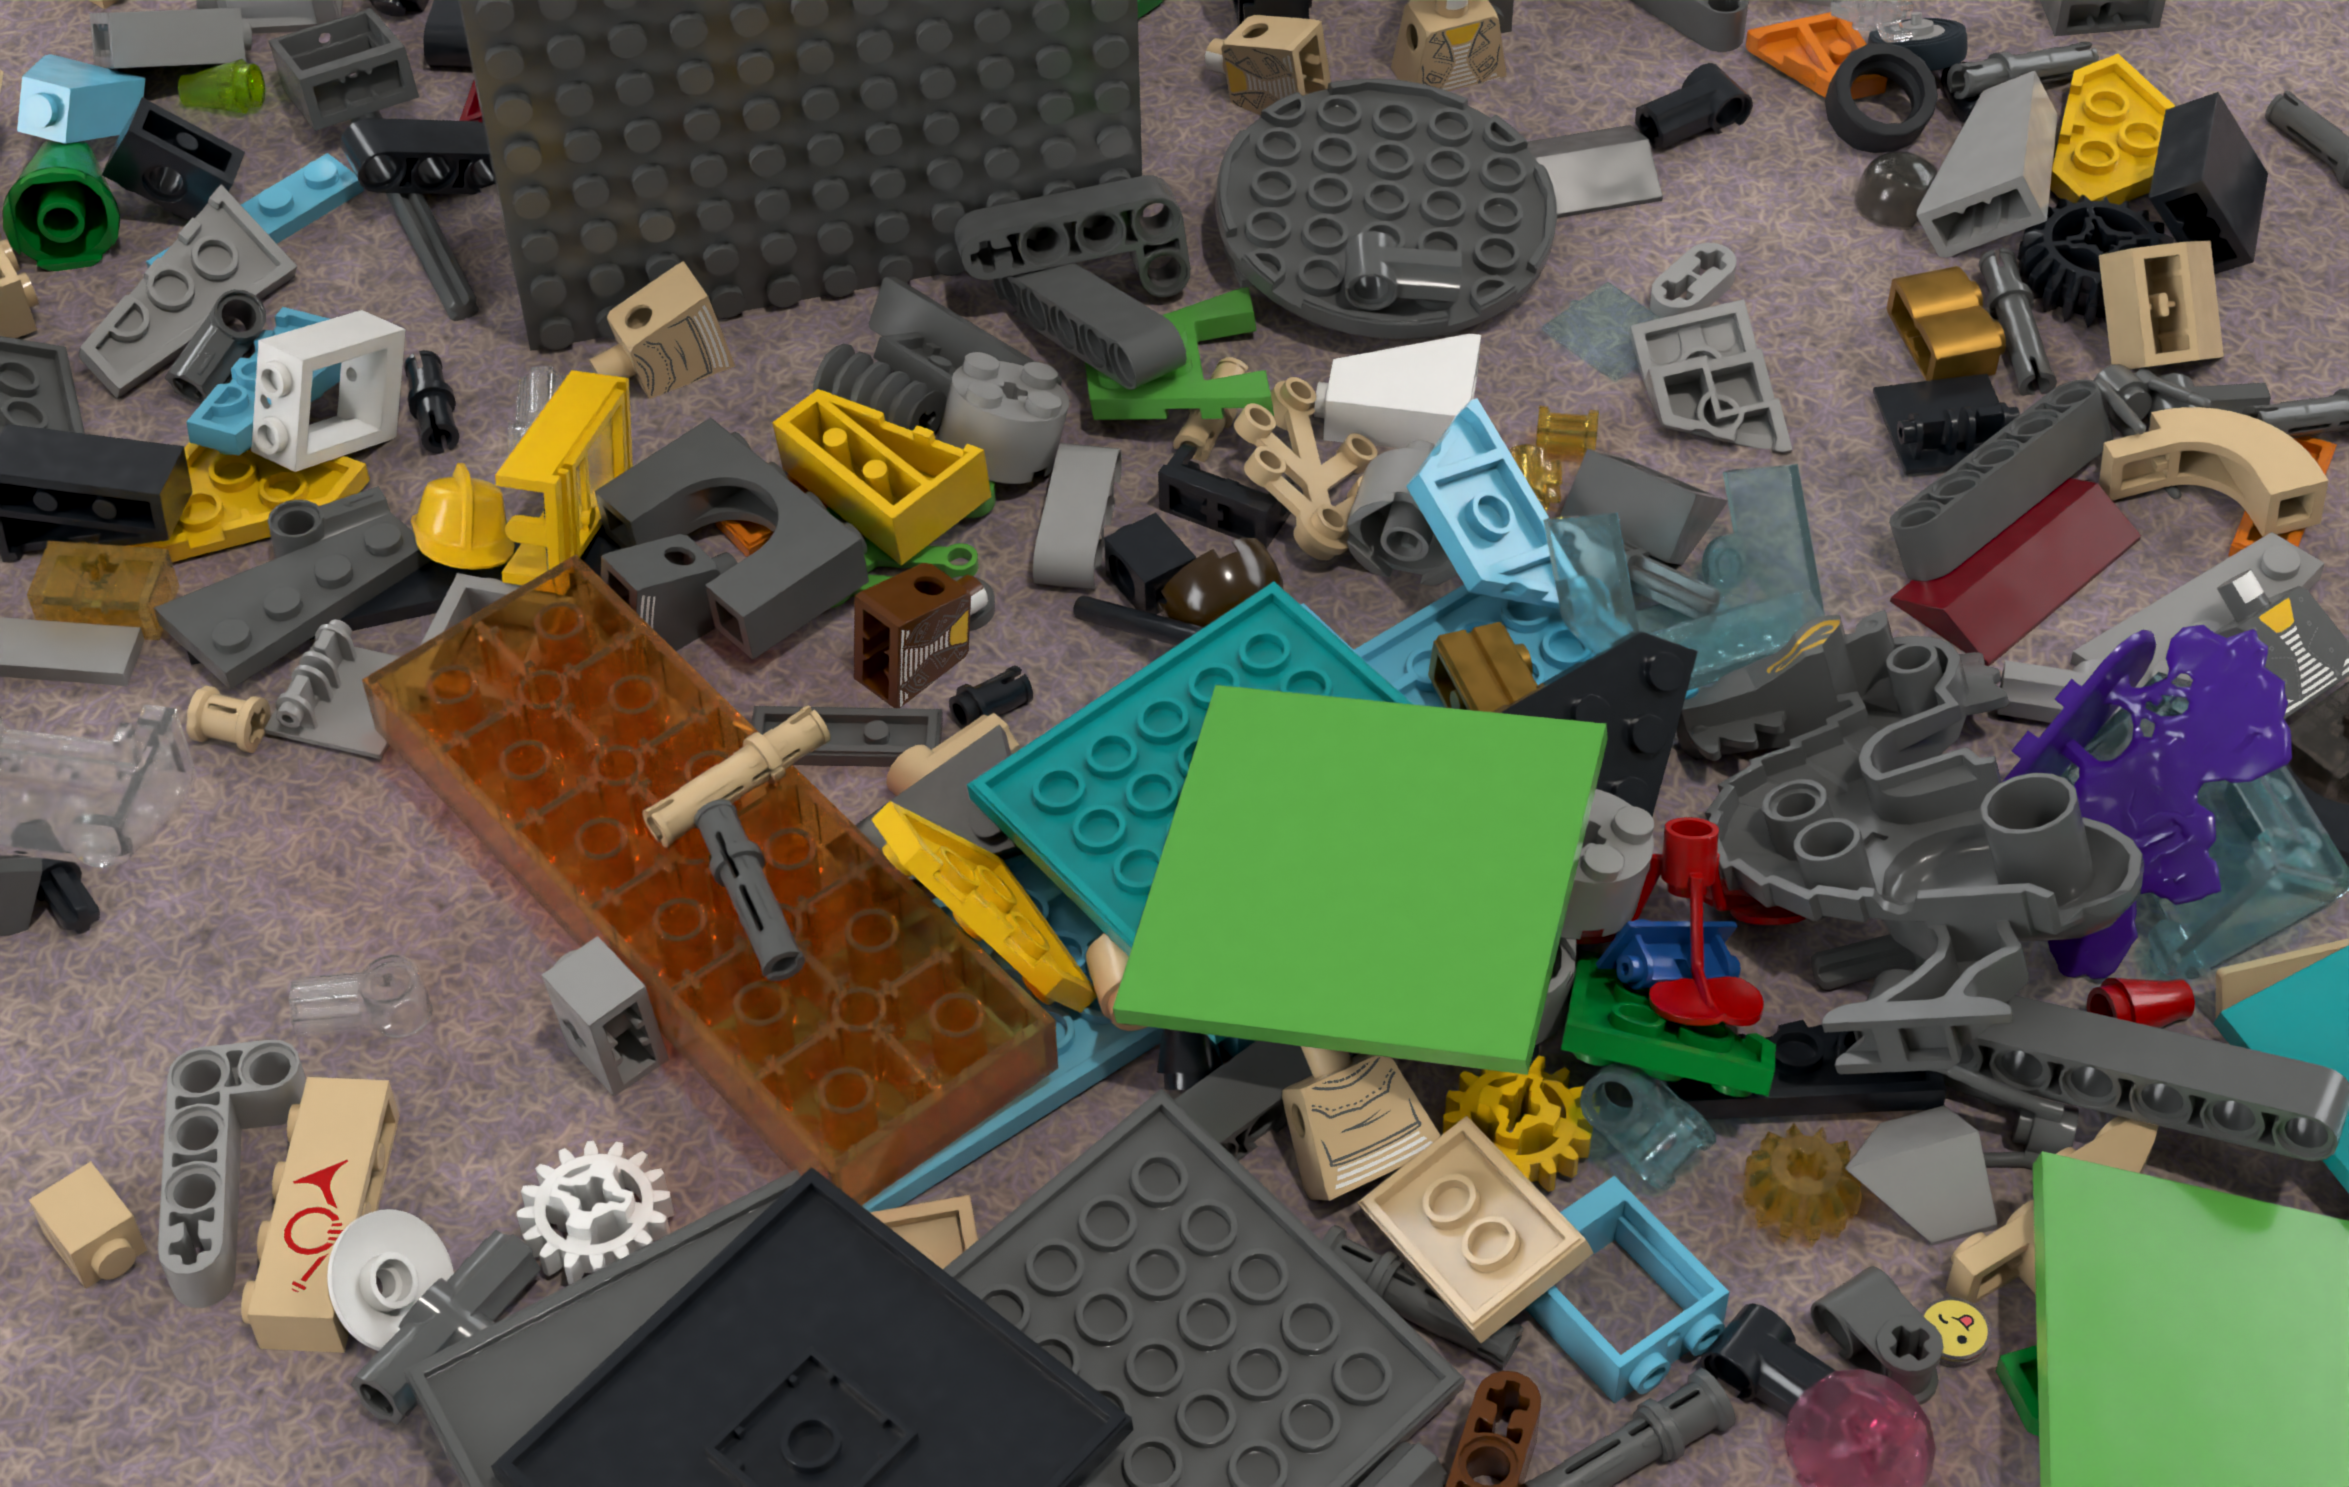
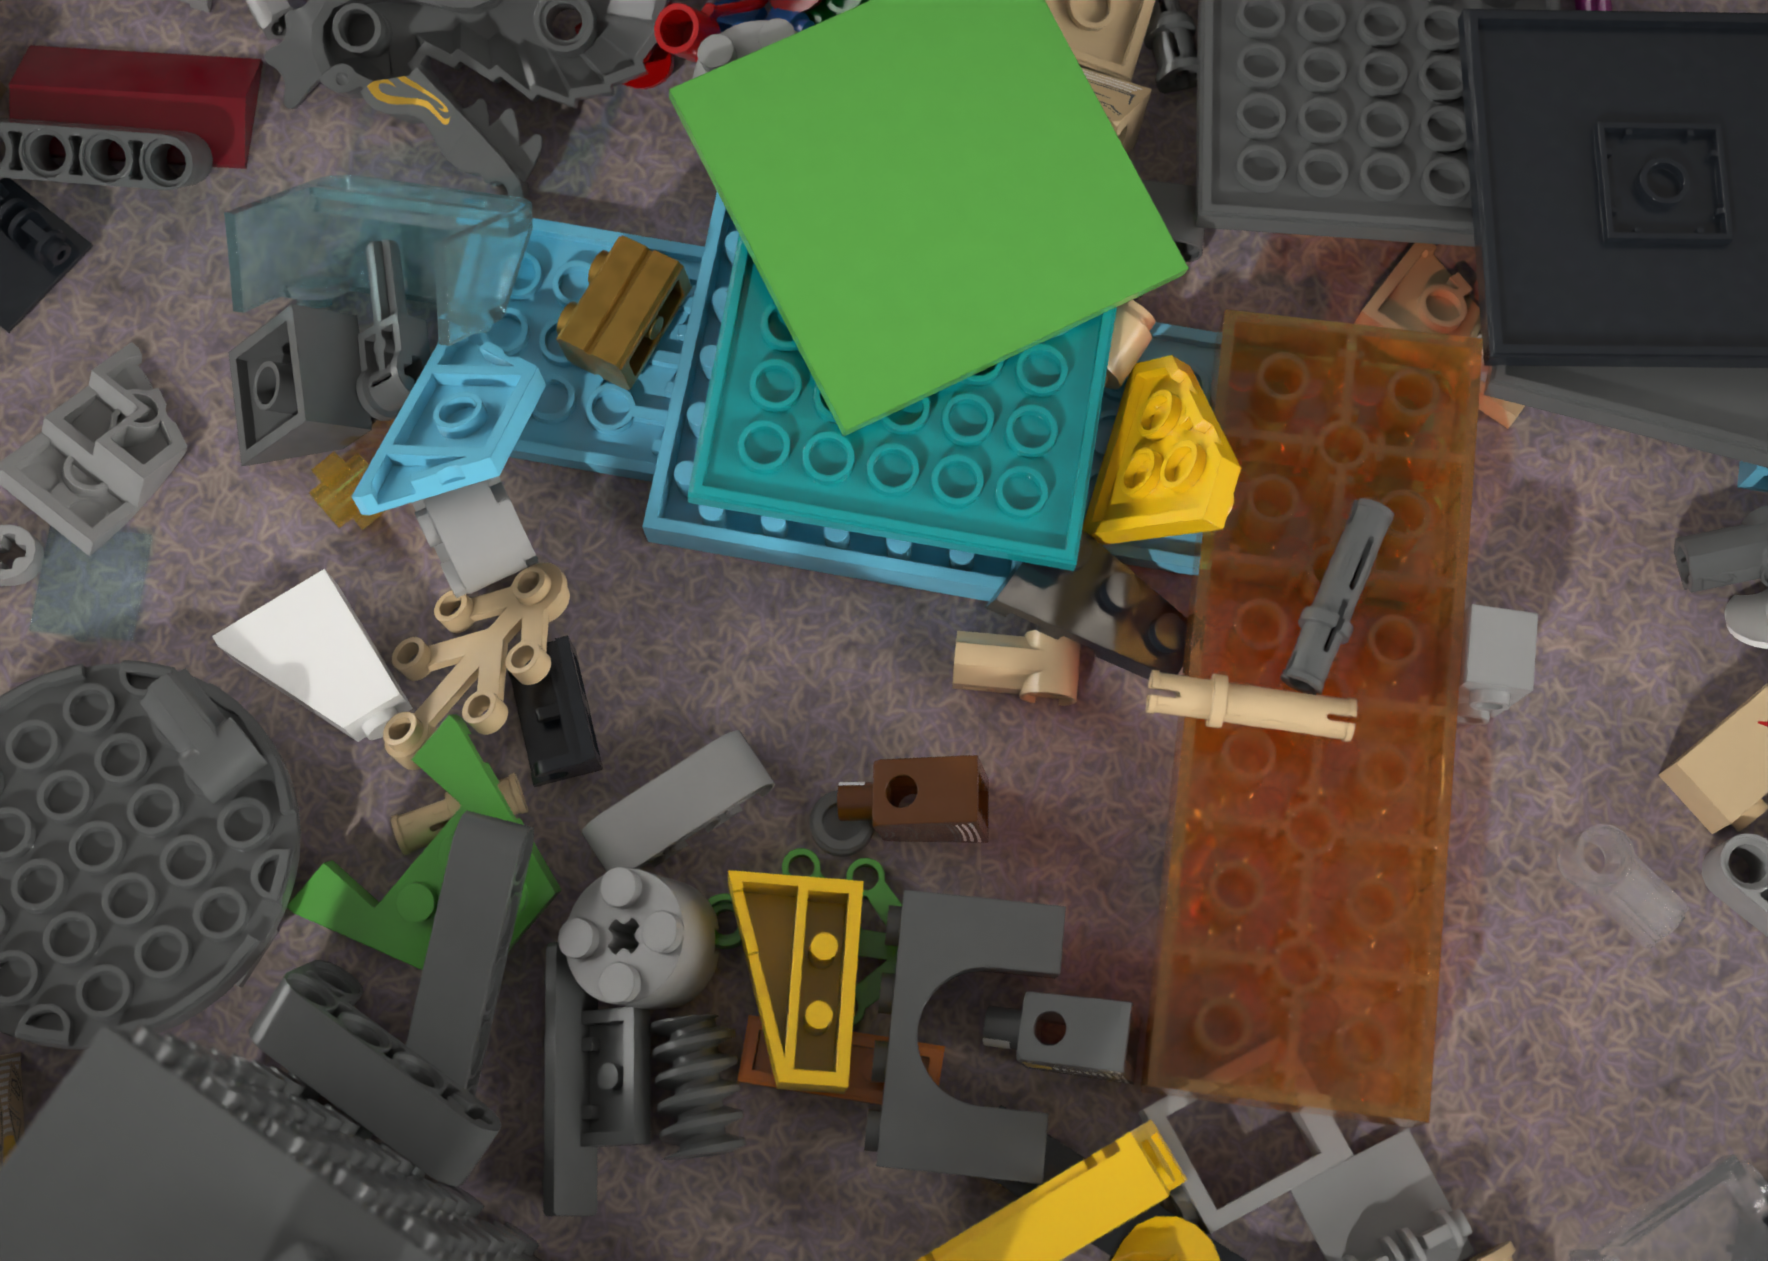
camera: 130 degrees left, 25 degrees up
(591, 1205) = (1605, 514): white gear -> none
(861, 734) = (1054, 787): dark grey tile -> none
(991, 696) = (924, 705): black pin -> none
(1133, 620) = (756, 636): black bar -> none
(1144, 559) = (686, 700): black brick -> none
(1216, 585) = (676, 589): dark brown cylinder -> none
(1566, 432) = (265, 525): clear yellow bush -> none
(1639, 696) = (608, 200): black plate -> none

